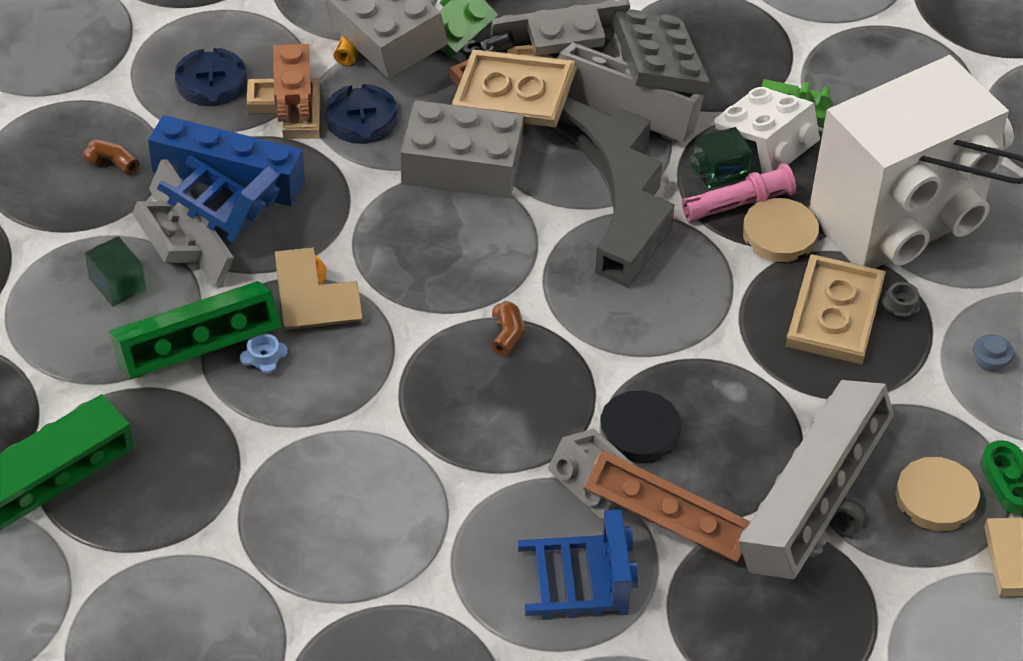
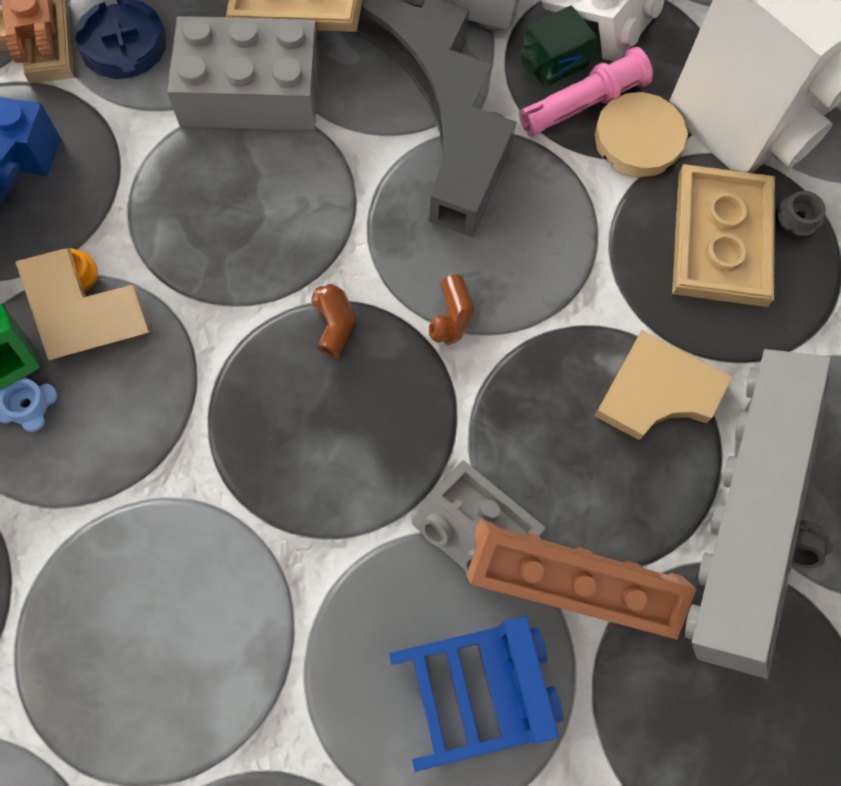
camera: 10 degrees left, 20 degrees up
(608, 331) = (459, 312): none -> dark orange arm
(640, 425) = (519, 442): black tile -> none
(759, 402) = (661, 385): none -> tan tile

